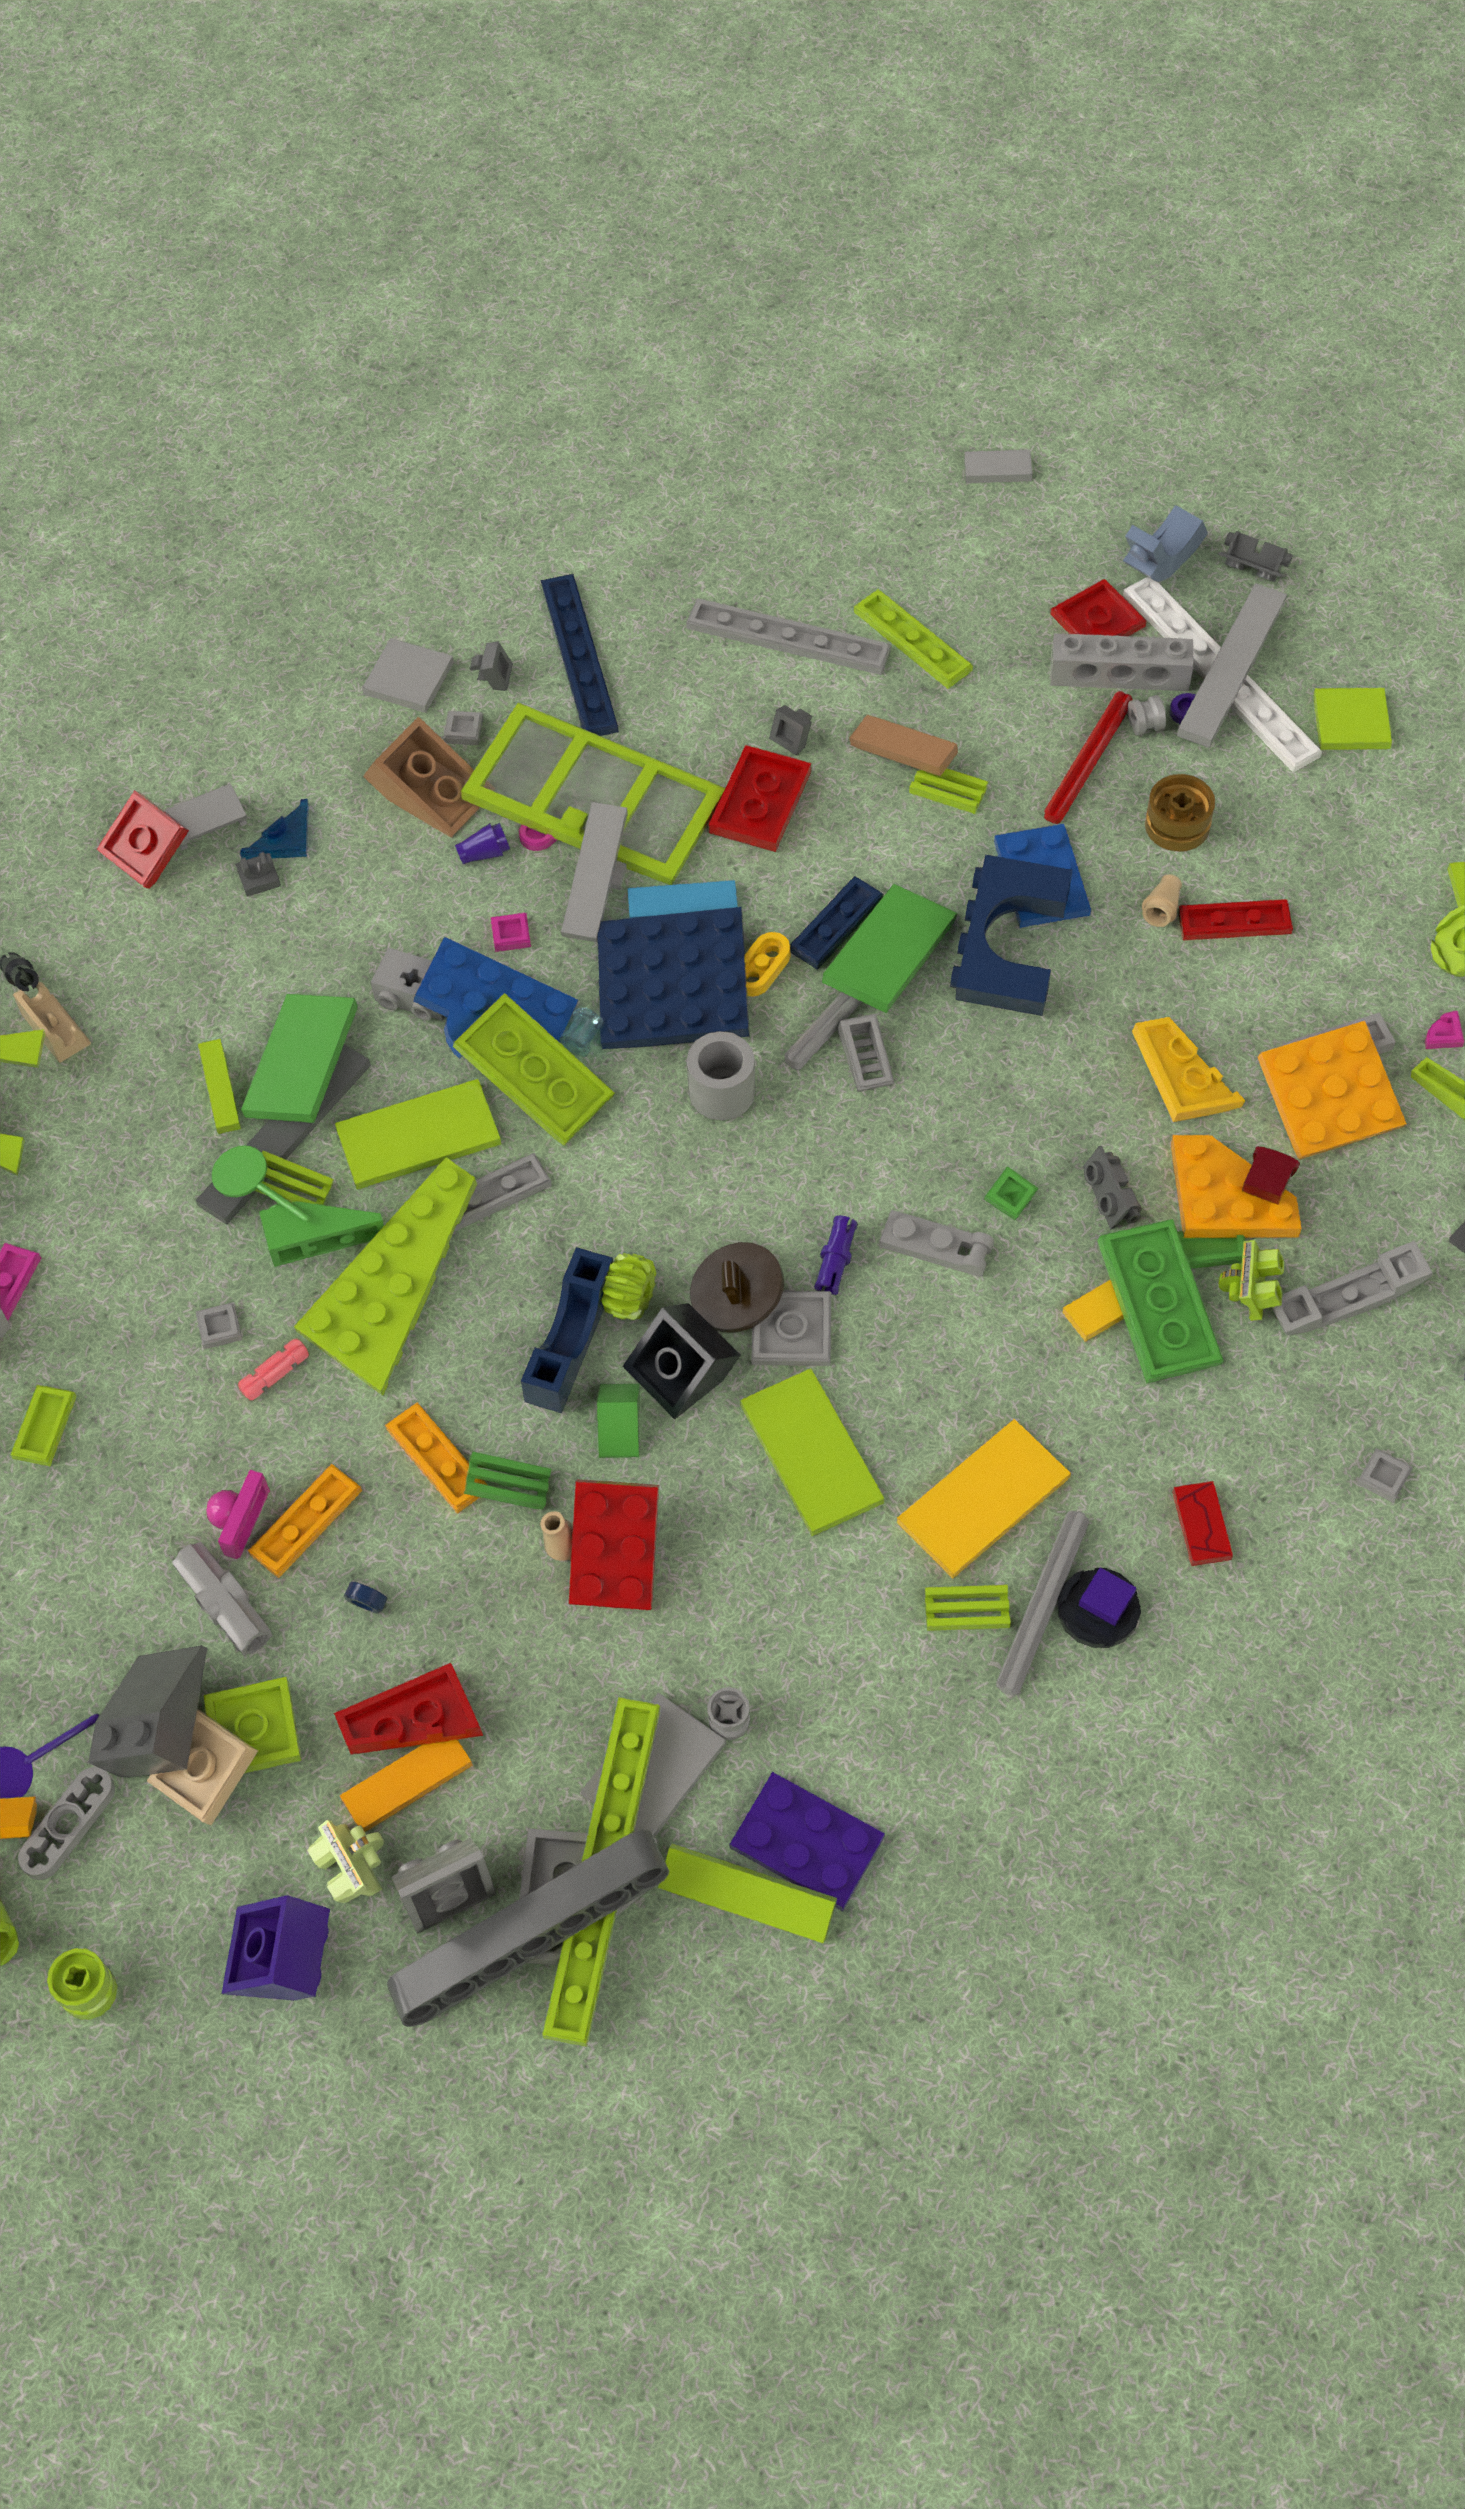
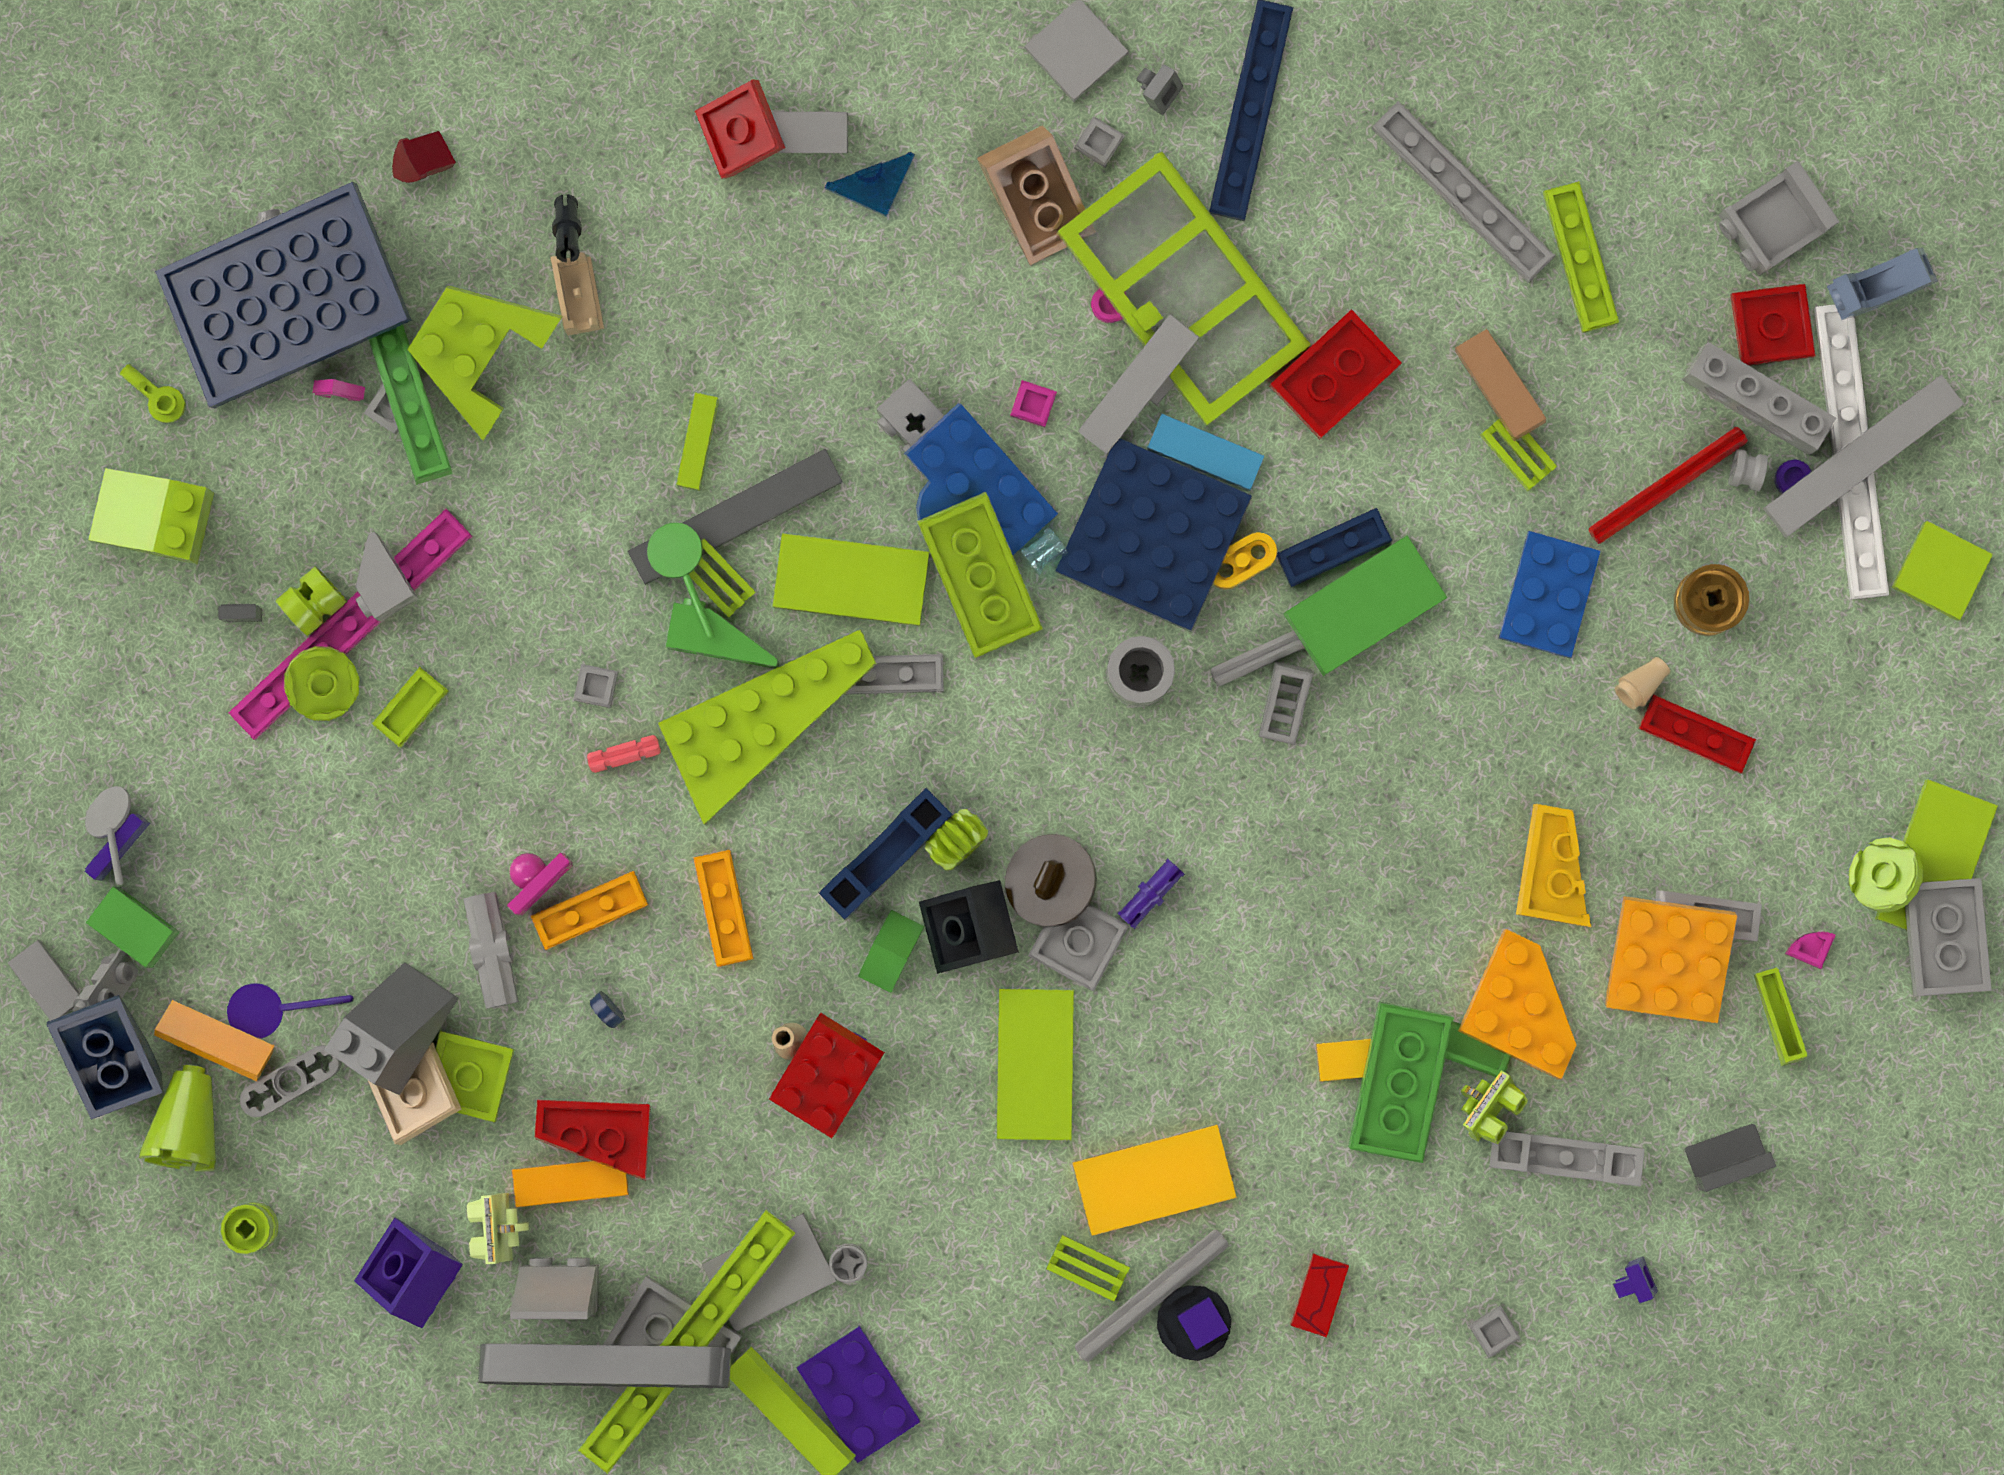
camera: 20 degrees right, 25 degrees up
(257, 874) = (831, 217): dark grey tile -> none
(300, 1058) = (781, 449): bright green tile -> none
(484, 844) = (1055, 294): dark purple cone -> none
(510, 1467) = (796, 982): bright green tile -> none
(791, 729) = (1405, 311): dark grey tile -> none
(936, 1243) = (1243, 923): light grey plate -> none
(998, 466) = (1782, 85): light grey tile -> none
(1004, 888) = (1495, 606): dark blue arch -> none
(1011, 1193) = (1334, 911): bright green tile -> none
(1055, 544) = (1777, 219): none -> light grey panel
(1106, 1176) = (1418, 968): dark grey hinge -> none
(1242, 553) = (1970, 353): dark grey hinge -> none
(1269, 1174) = (1562, 1019): dark red tile -> none

